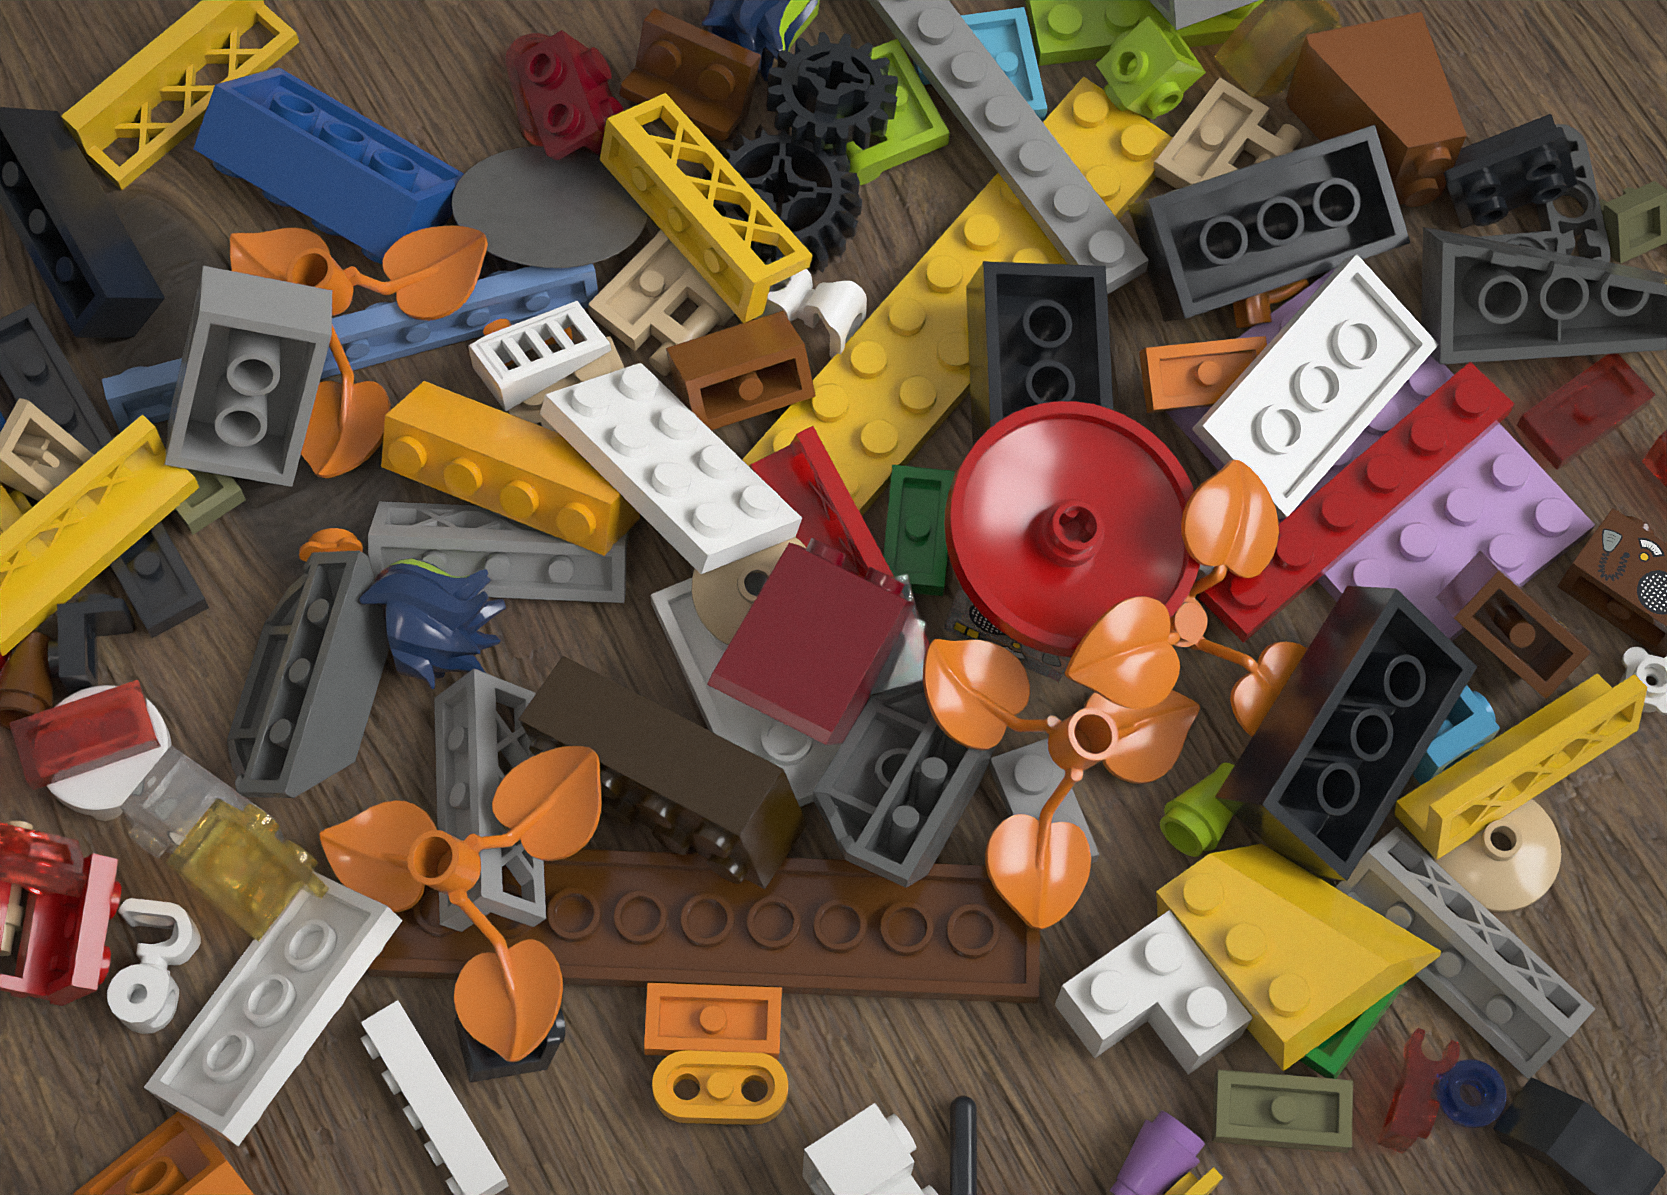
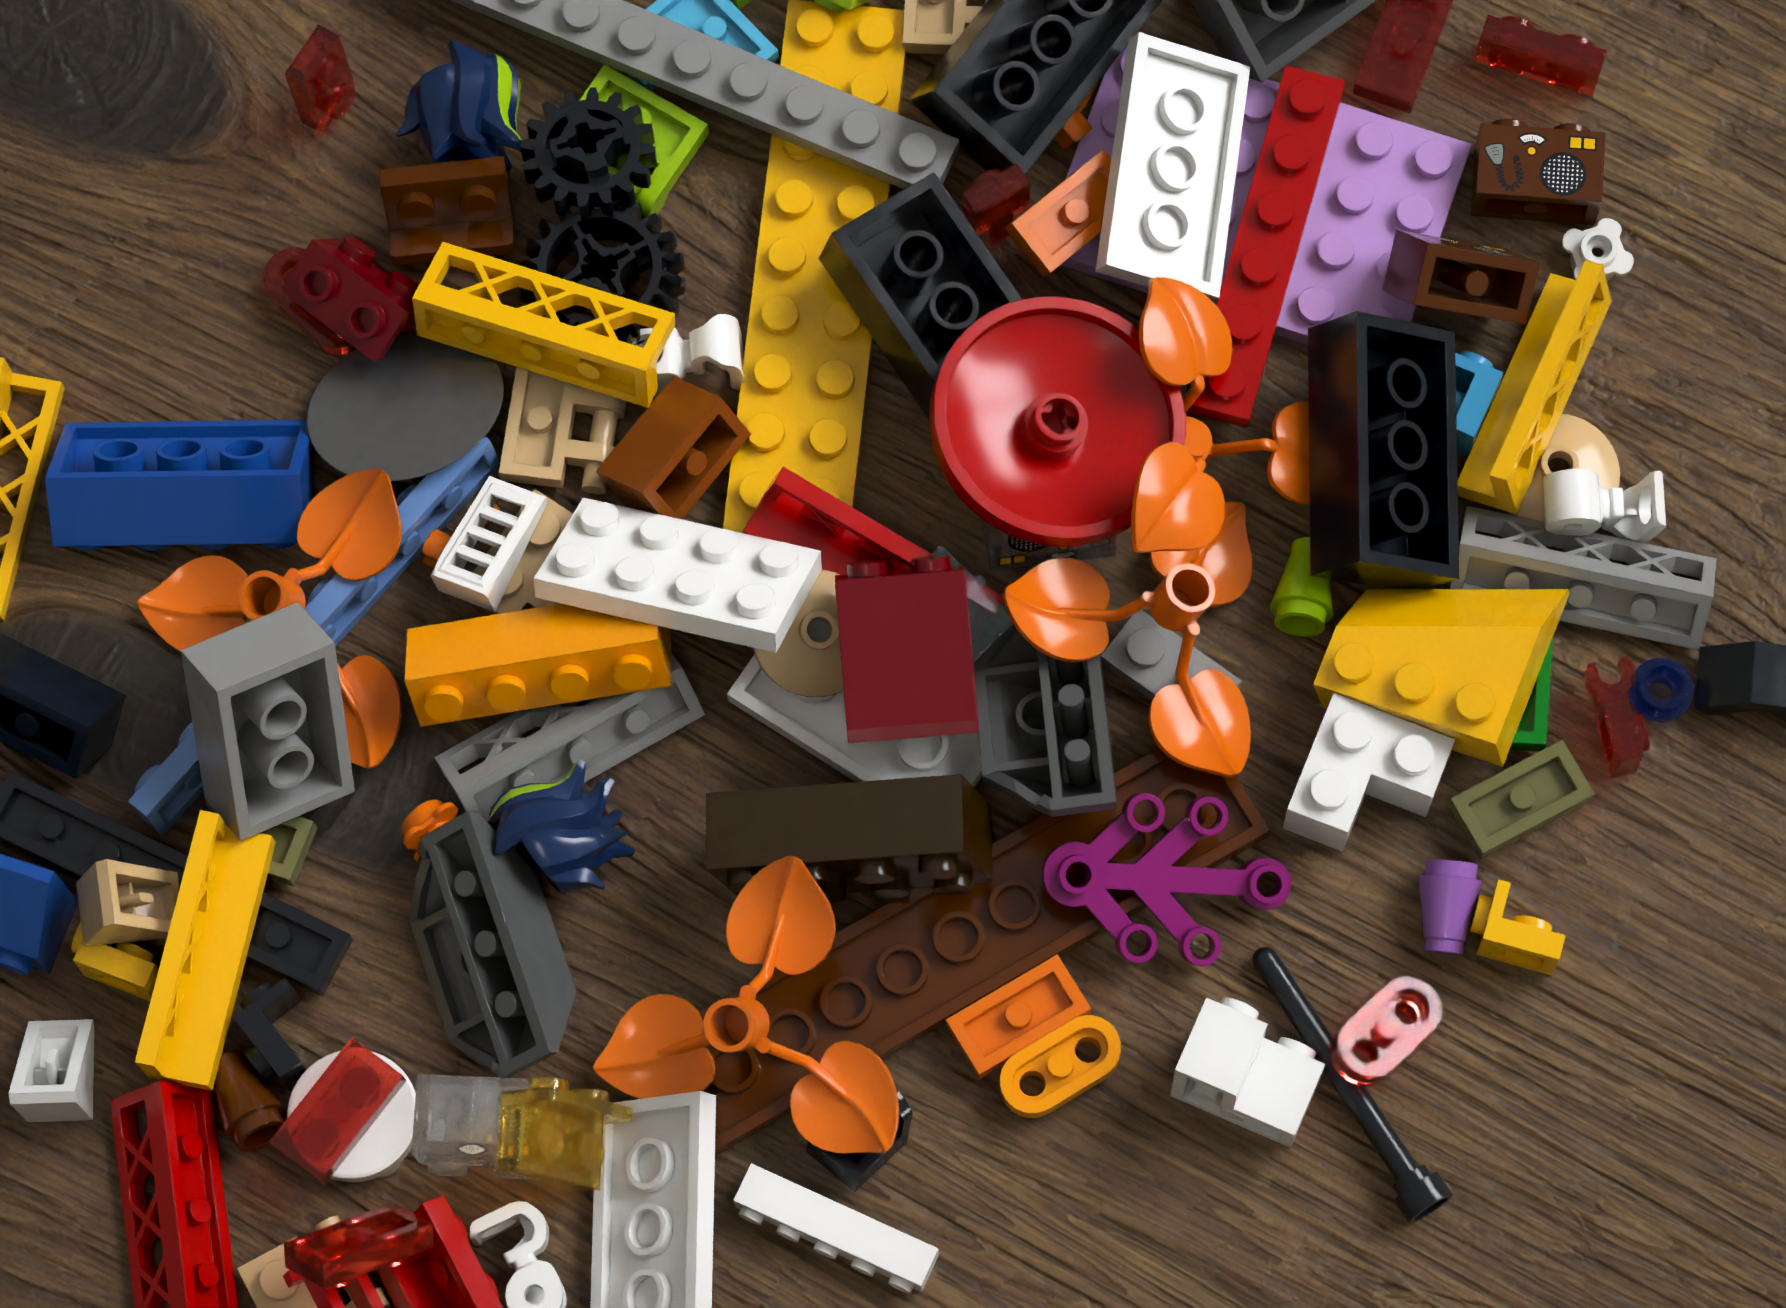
camera: 25 degrees left, 5 degrees up
(467, 777) = (695, 951): light grey fence -> none
(908, 974) = (1154, 878): none -> magenta plant
(916, 526) = (911, 493): green plate -> none
(1145, 323) = (994, 201): none -> clear red plate
(1497, 884) = (1580, 506): none -> white leg

